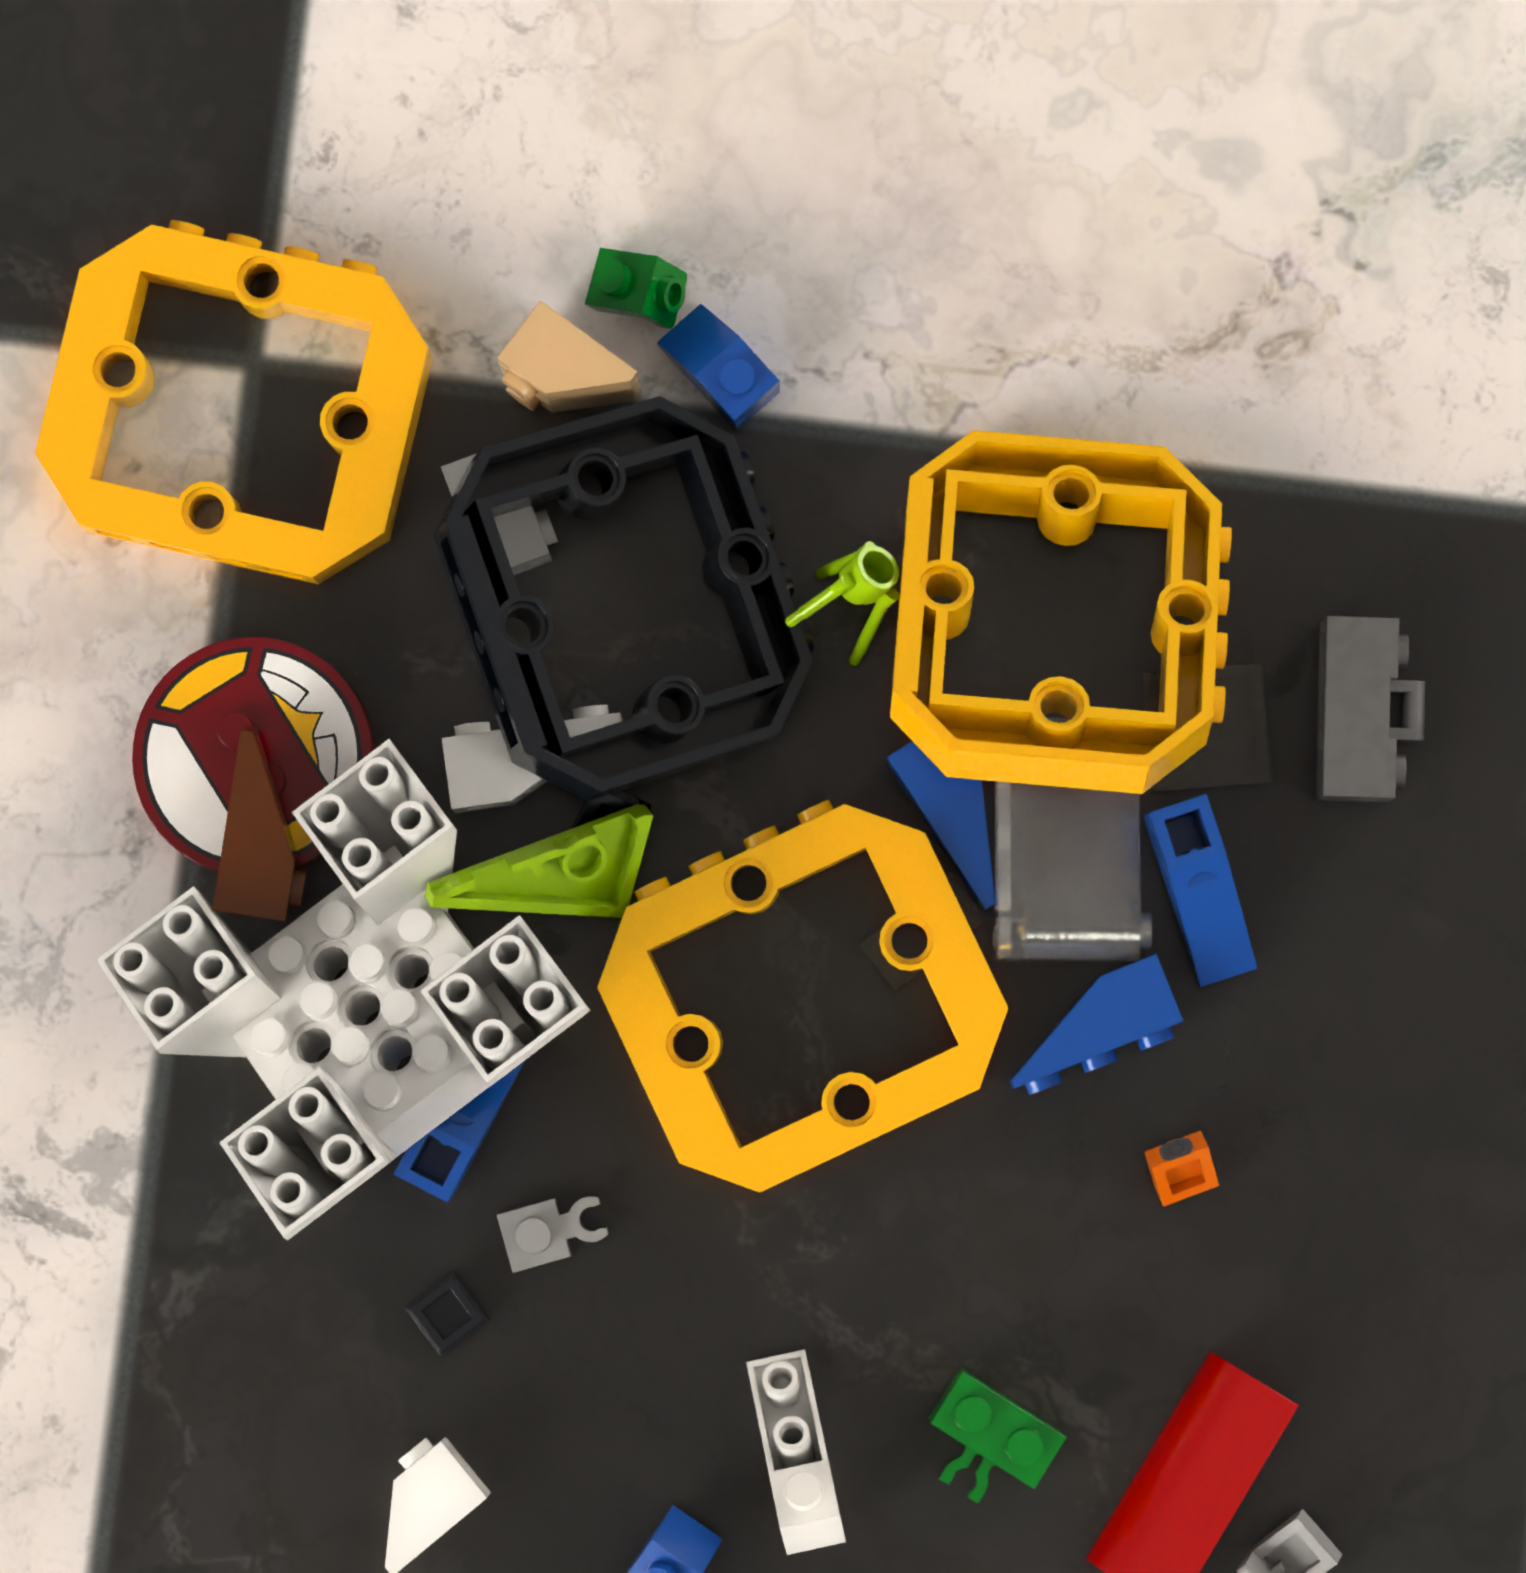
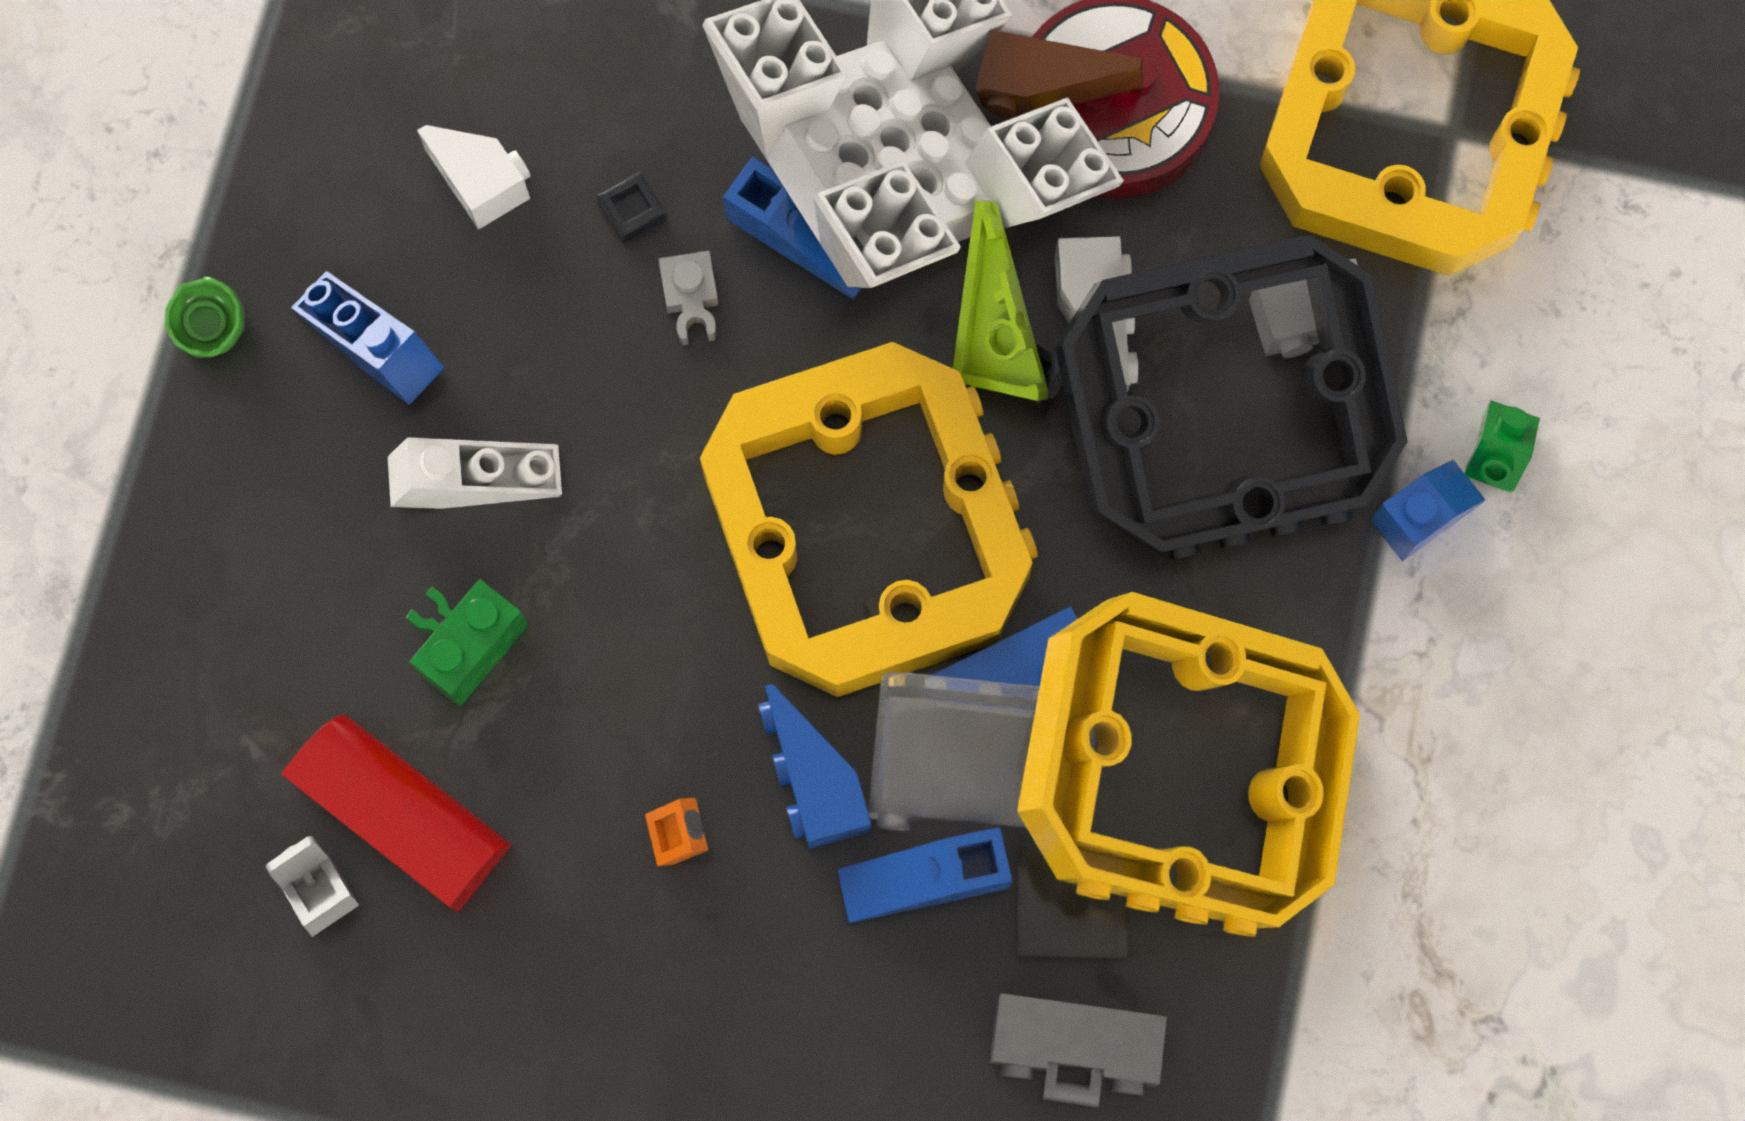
camera: 90 degrees right, 10 degrees down
(563, 366) = (1438, 361): tan slope -> none
(863, 579) = (1229, 592): lime plant -> none

